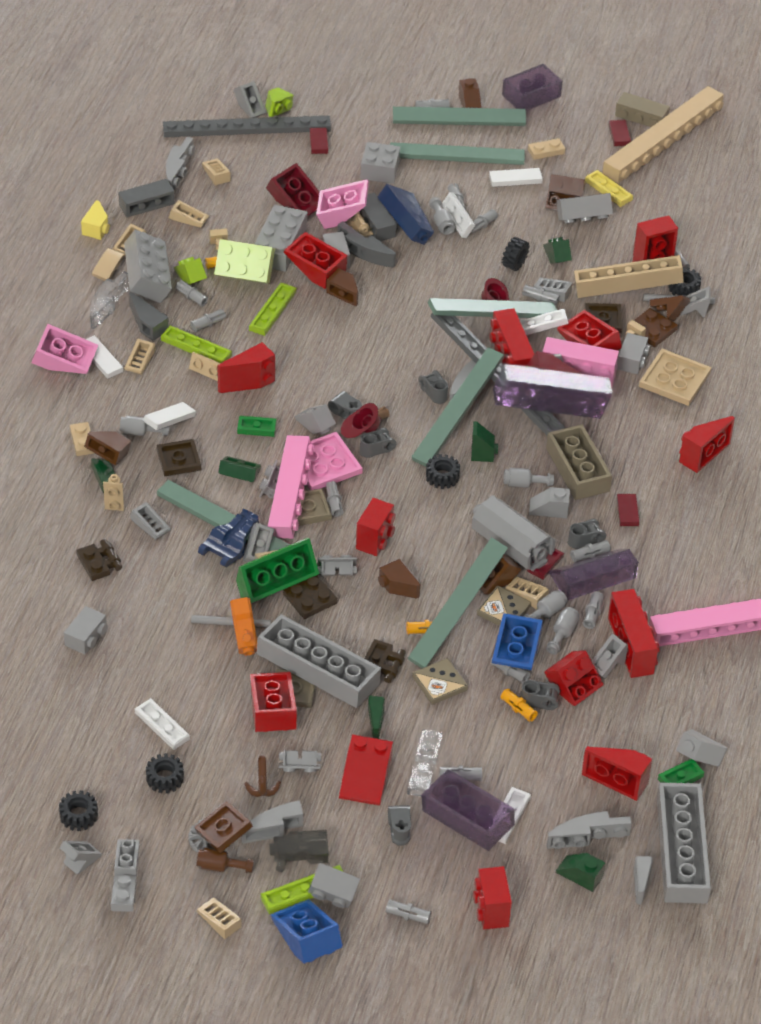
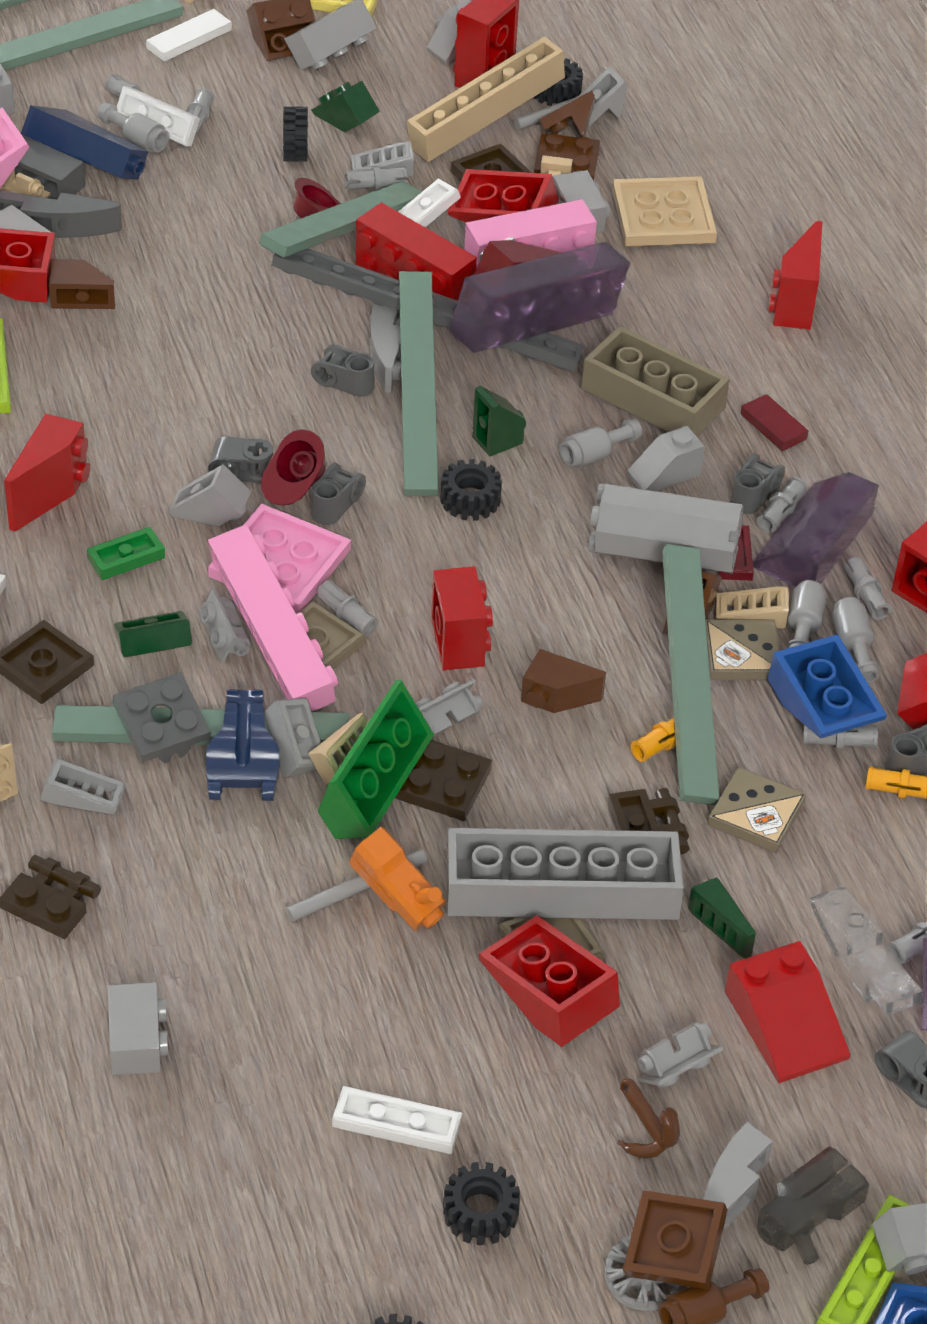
camera: 35 degrees left, 0 degrees up
(203, 517) = (161, 739): none -> dark grey piece

